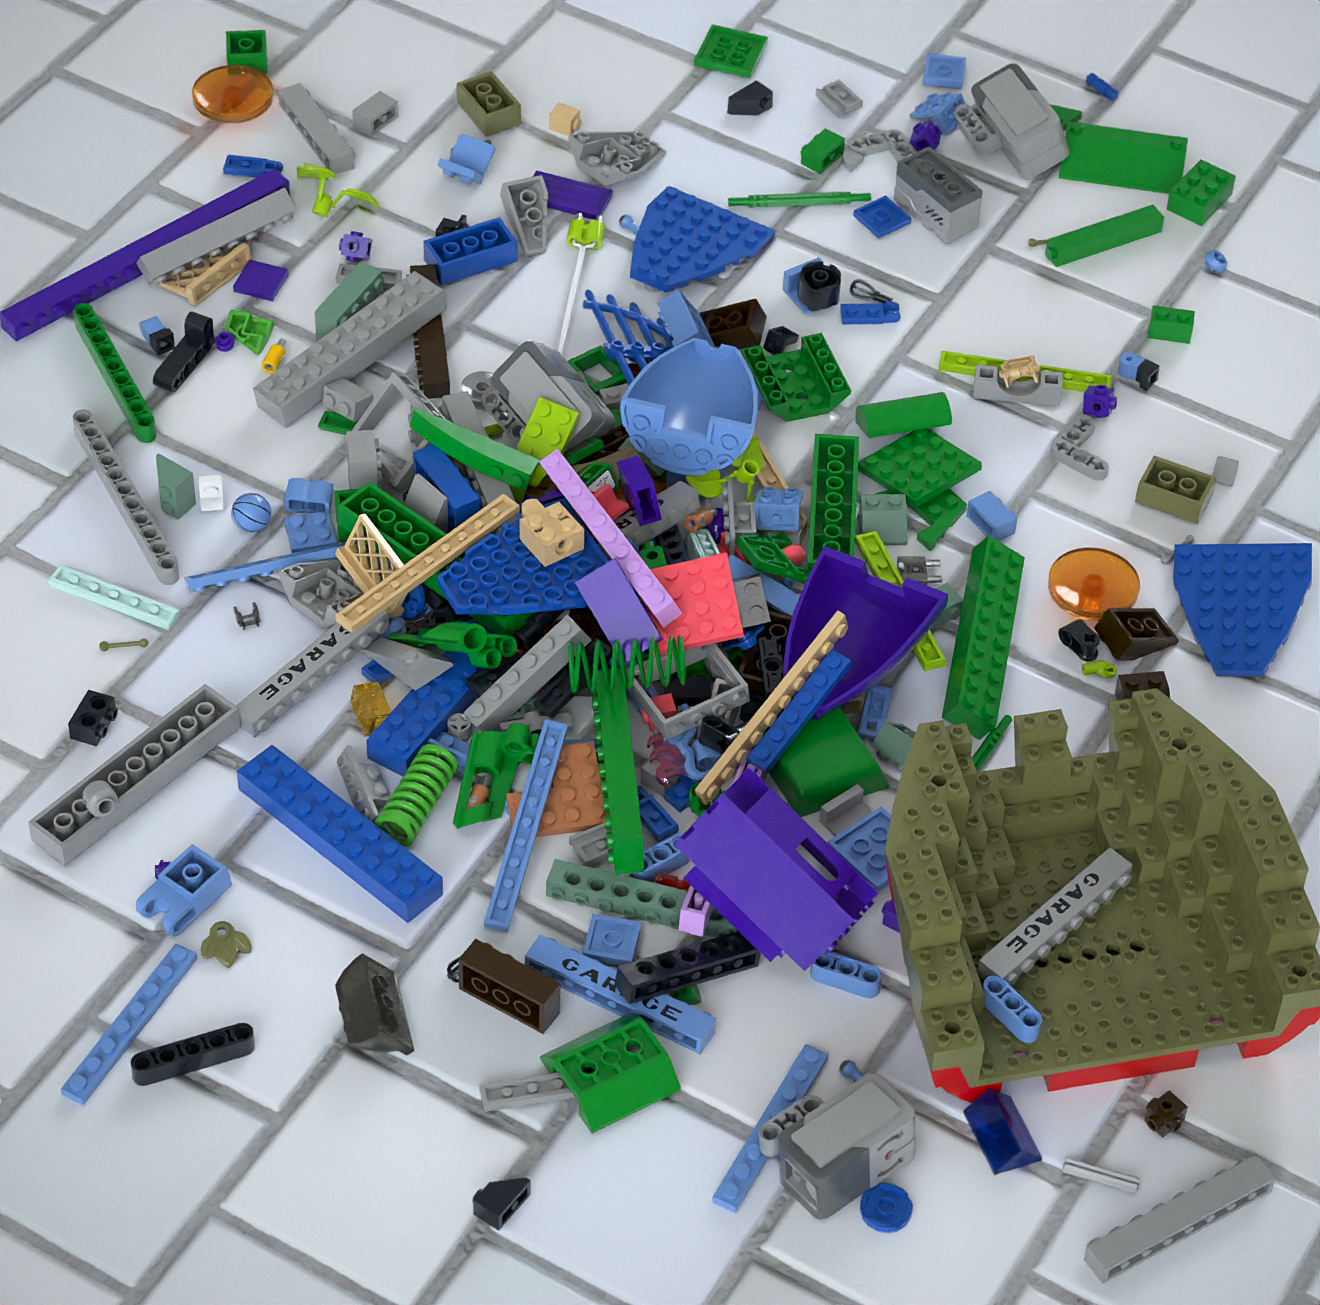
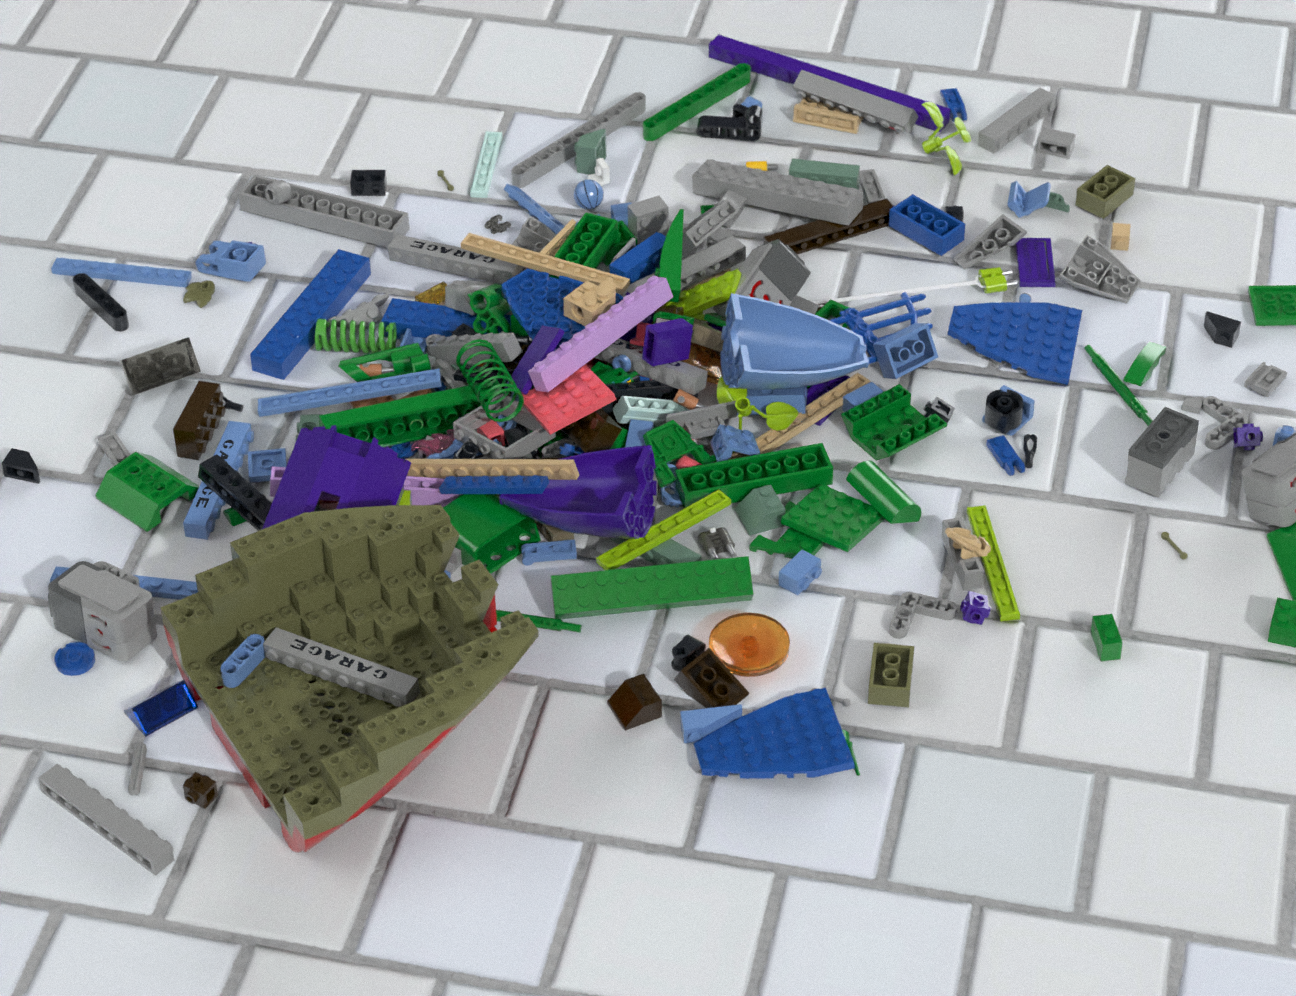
camera: 75 degrees right, 5 degrees down
(224, 341) = (762, 142): dark purple plate -> none
(232, 94) = (1022, 70): clear orange dish -> none
(247, 49) = (1074, 63): green brick -> none
(249, 330) = (780, 149): bright green slope -> none
(260, 280) = (837, 141): dark purple tile -> none
(362, 248) = (895, 170): brick -> none
(736, 324) = (935, 381): dark brown slope -> none
(781, 169) = (1144, 363): none -> green slope
(822, 151) = (1186, 382): green brick -> none
(882, 216) = (1124, 434): blue plate -> none
(894, 742) = (521, 573): sand green slope -> none
(1101, 668) = (663, 672): lime arm -> none
(1104, 235) = (1199, 574): green brick -> none
(1138, 369) = (1034, 635): leg -> none
(1194, 652) = (702, 722): none -> medium blue slope
(1215, 261) = (1216, 654): medium blue hat -> none
(1225, 470) = (941, 709): light grey slope -> none

